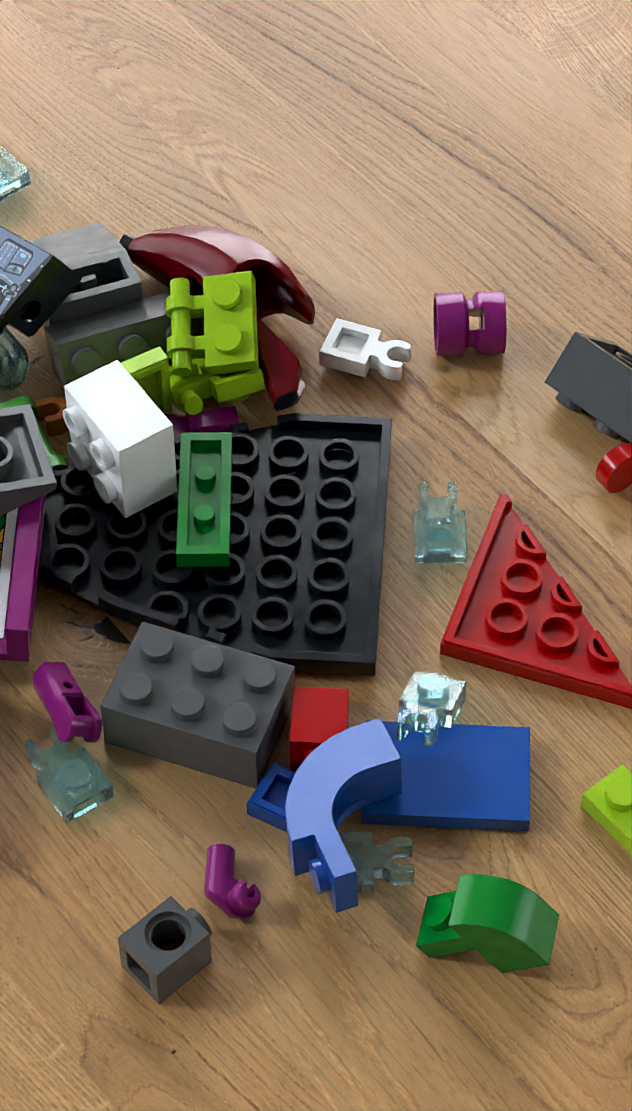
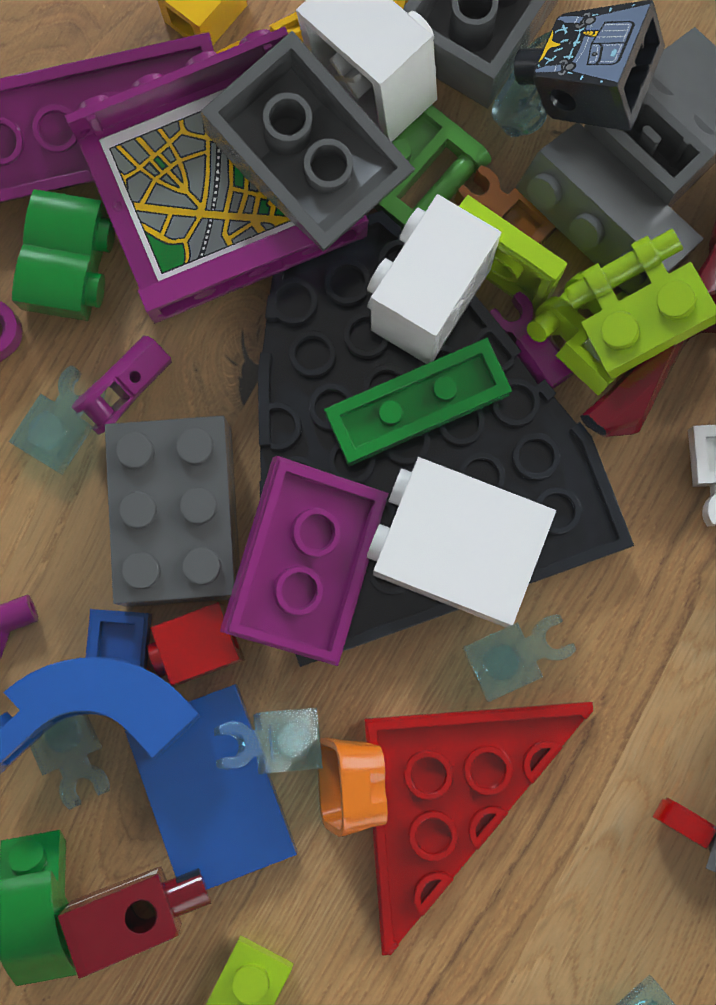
camera: 70 degrees right, 30 degrees up
(292, 614) = (304, 561): none -> magenta tile
(333, 508) = (461, 541): none -> white brick
(489, 656) = (351, 786): none -> orange piece
(528, 834) = (105, 928): none -> dark red torso

